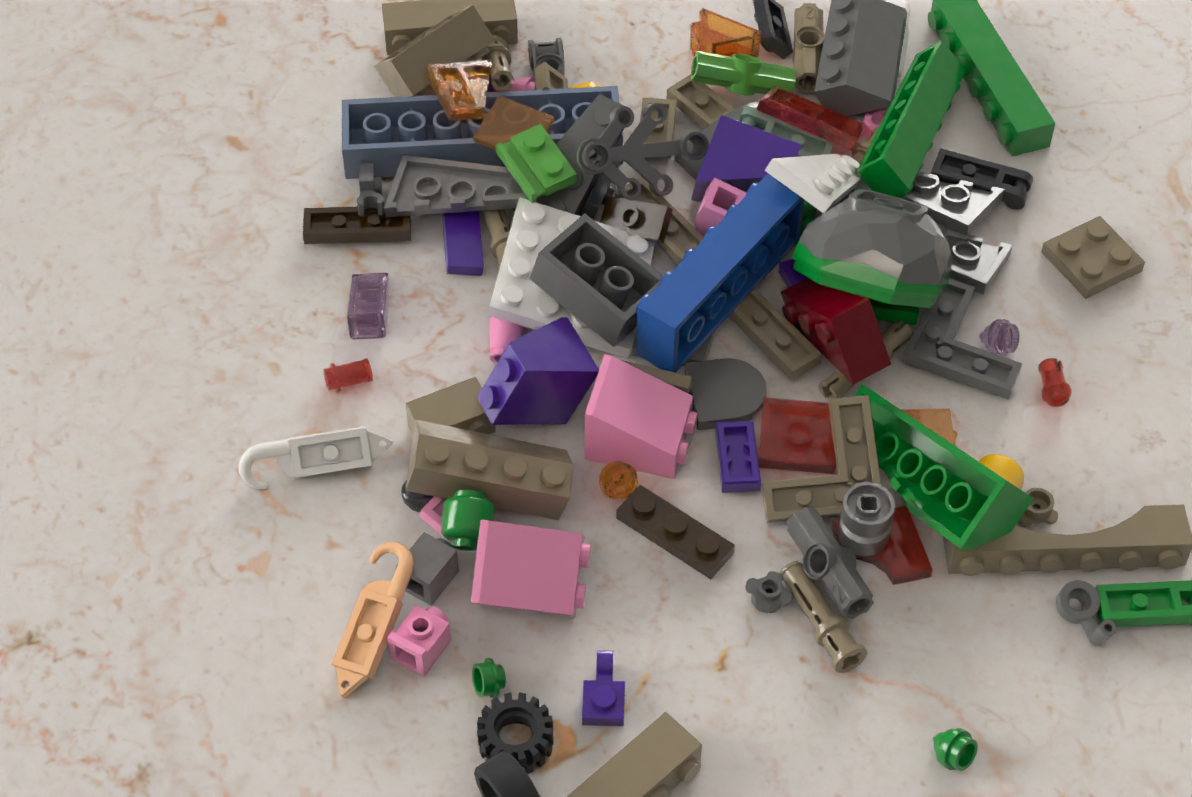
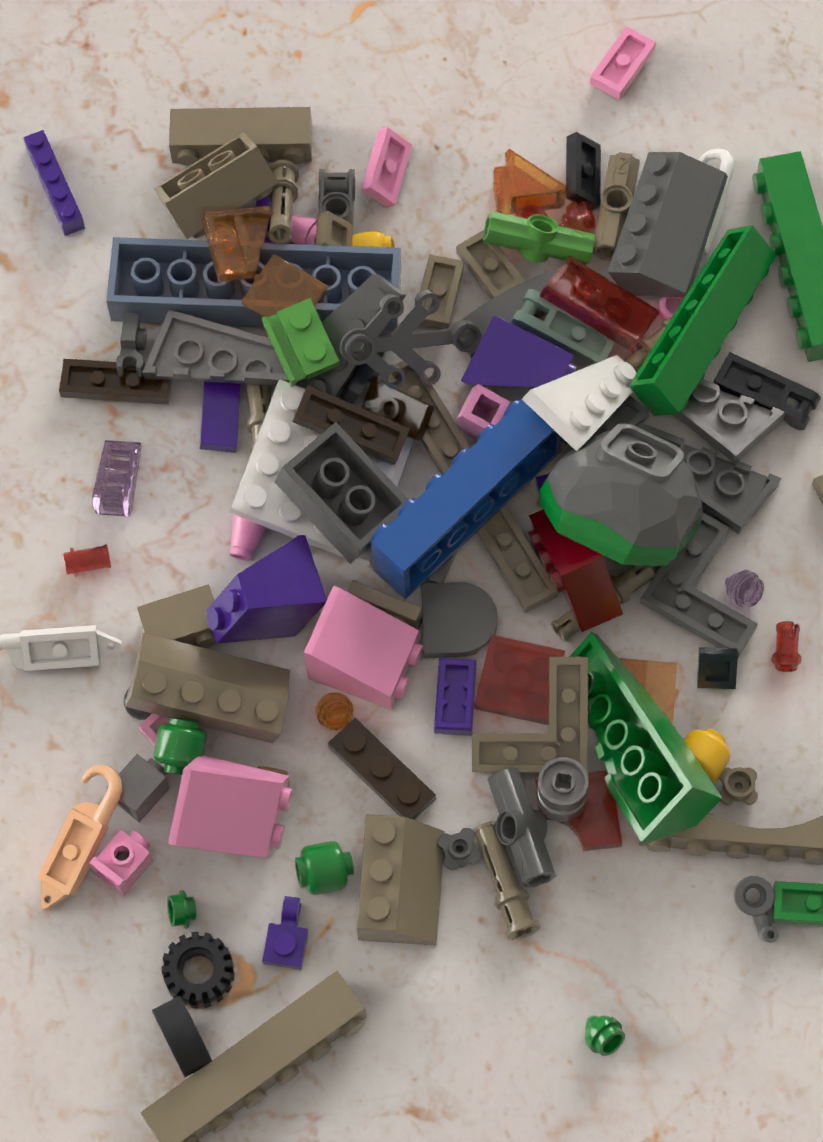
camera: 10 degrees right, 15 degrees up
(277, 75) = (54, 182): none -> dark purple piece
(562, 212) = (368, 430): none -> dark brown plate
(590, 36) = (386, 167): none -> bright pink plate
(632, 621) = (323, 867): none -> green head
(712, 627) = (399, 881): none -> dark tan slope
(776, 55) = (578, 217): none -> clear red plate
(991, 405) = (717, 668): none -> black plate

